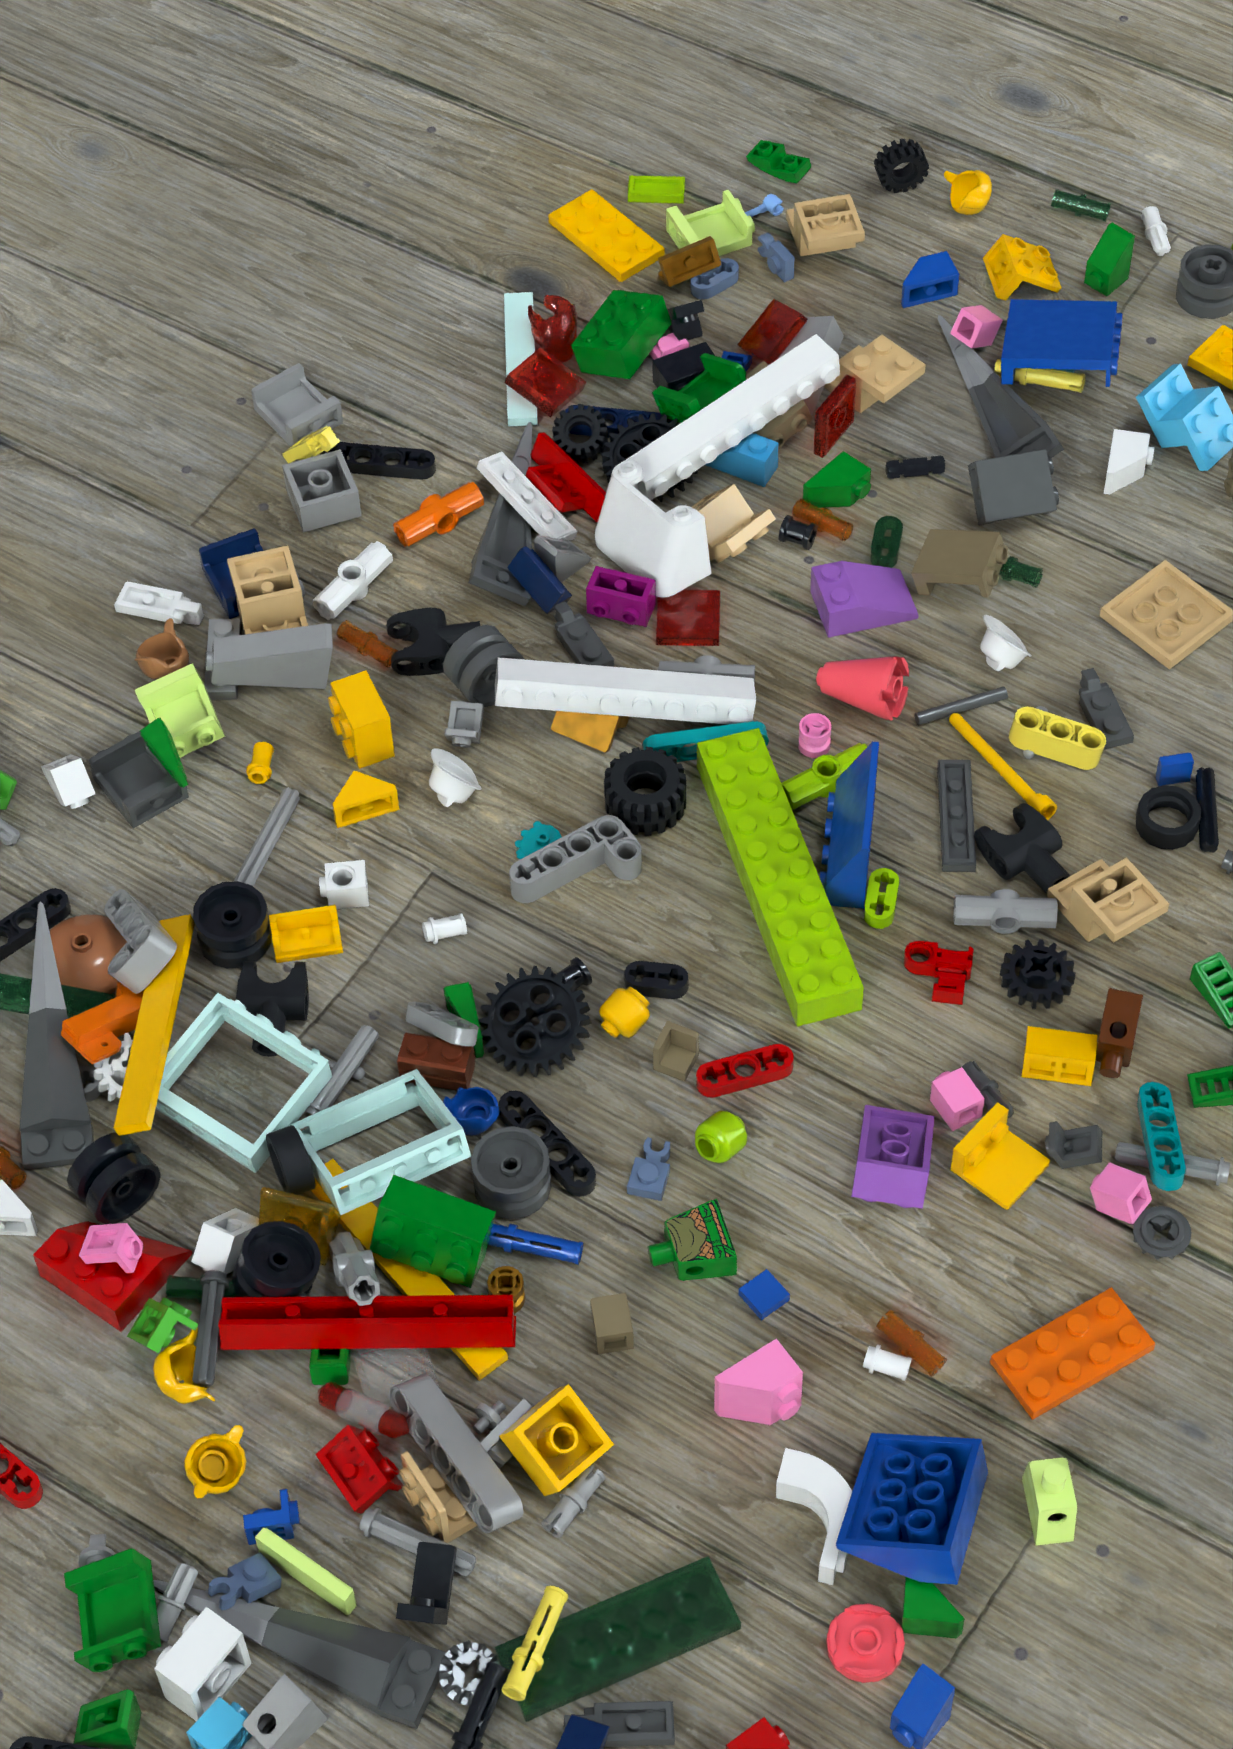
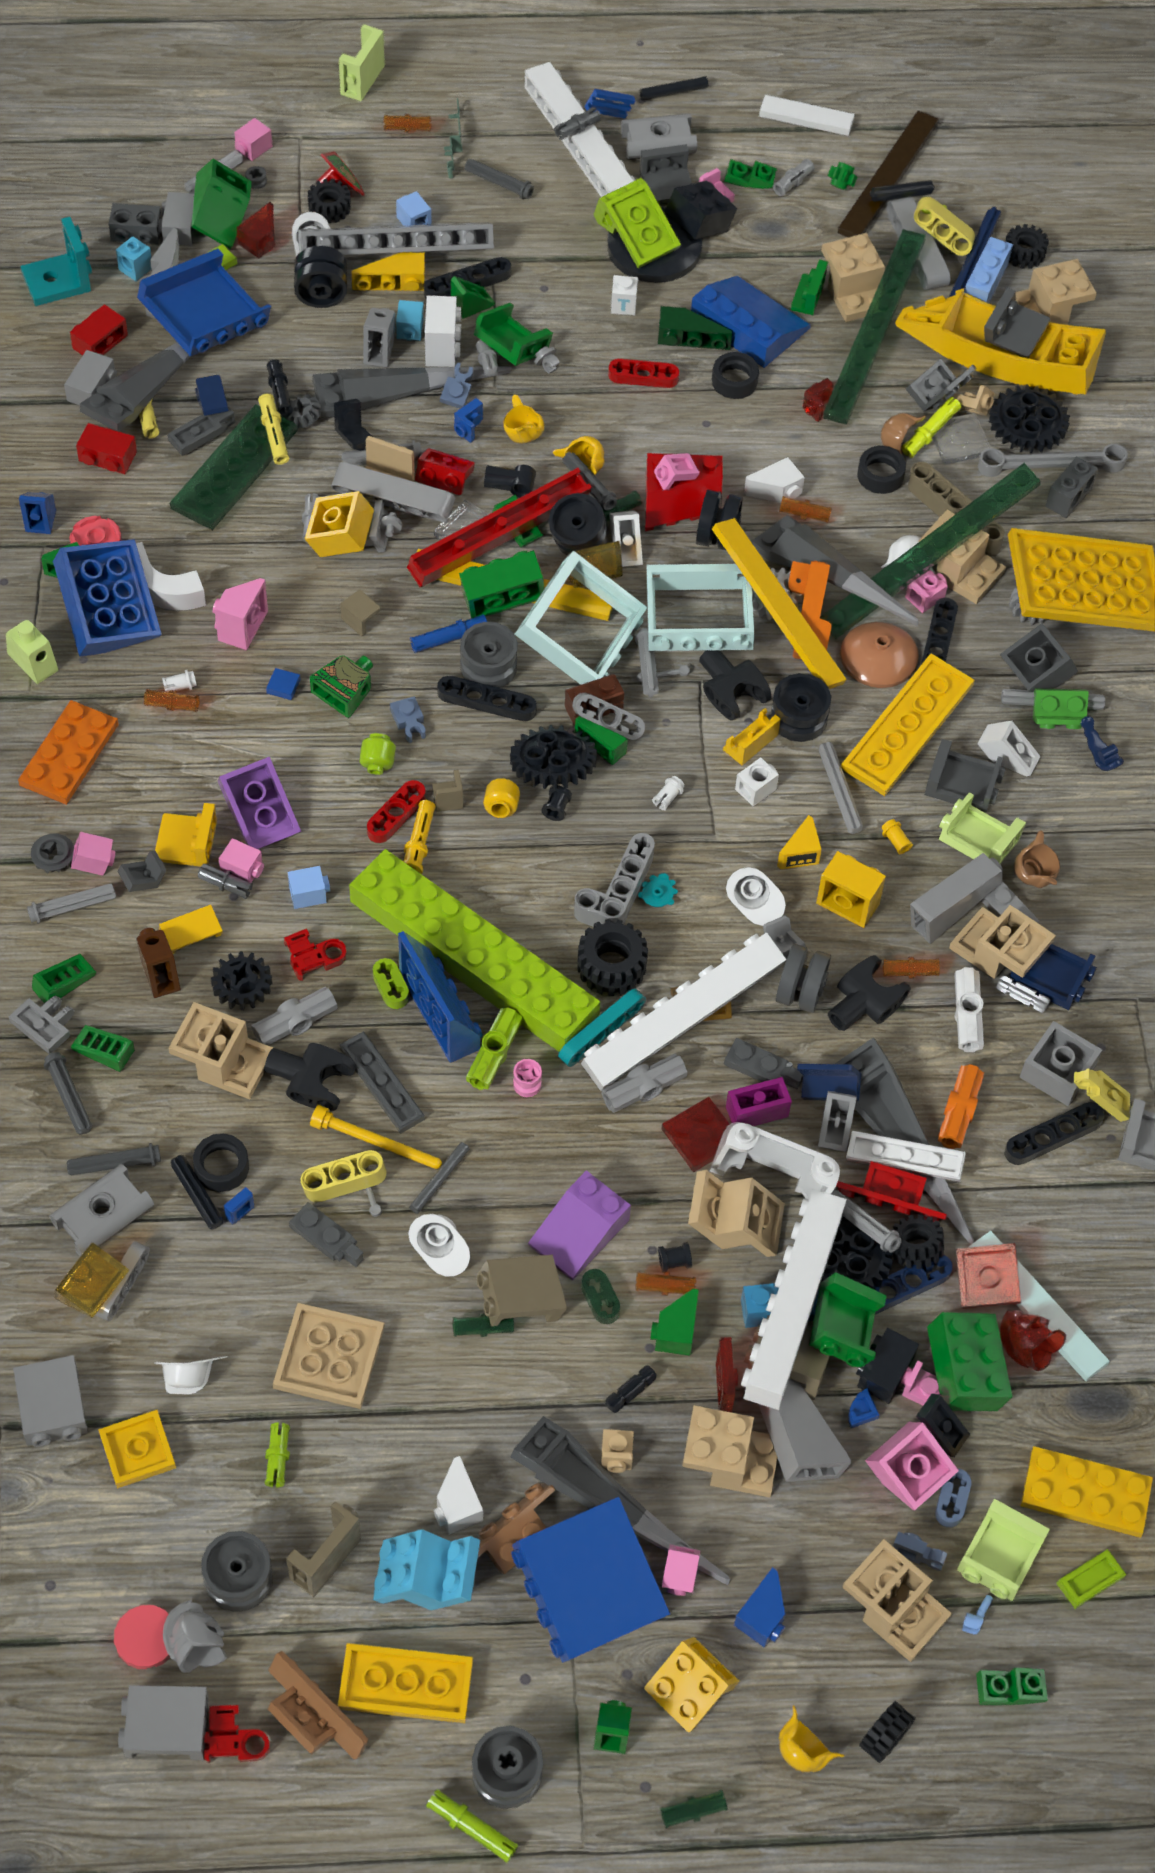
camera: 140 degrees right, 5 degrees up
(140, 852) = (907, 724): none -> yellow plate
(147, 944) = (845, 654): light grey beam -> none
(157, 1321) = (616, 467): bright green bracket -> none
(158, 604) = (1086, 910): white hinge -> none
(163, 748) = (961, 780): green slope -> none
(288, 1396) = (517, 480): none -> black piece
(290, 1160) = (621, 565): black tyre -> none
(306, 1571) = (426, 406): yellowish green tile -> none
(354, 1268) = (529, 539): light grey piece -> none
(363, 1410) = (467, 489): piece -> none
(473, 1109) = (547, 682): blue hair -> none
(507, 1281) = (438, 597): pearl gold wheel -> none
(611, 429) = (887, 1239): none -> light grey axle
(657, 979) = (500, 837): black beam -> none
(689, 261) = (981, 1484): pearl gold panel -> none
(731, 302) = (912, 1464): none -> bright pink slope
(755, 1013) = (416, 848): none -> yellow pin
(772, 332) = (845, 1438): clear red plate -> none
(867, 684) = (517, 1136): coral cone -> none
(901, 1032) = (308, 887): none -> light blue brick
(963, 430) = (617, 1450): none -> tan bracket
(1013, 486) = (524, 1389): dark grey panel -> none
(1096, 421) = (515, 1524): none -> medium nougat bracket
(1155, 230) = (601, 1820): white axle -> none
(1157, 1135) = (82, 906): teal beam -> none

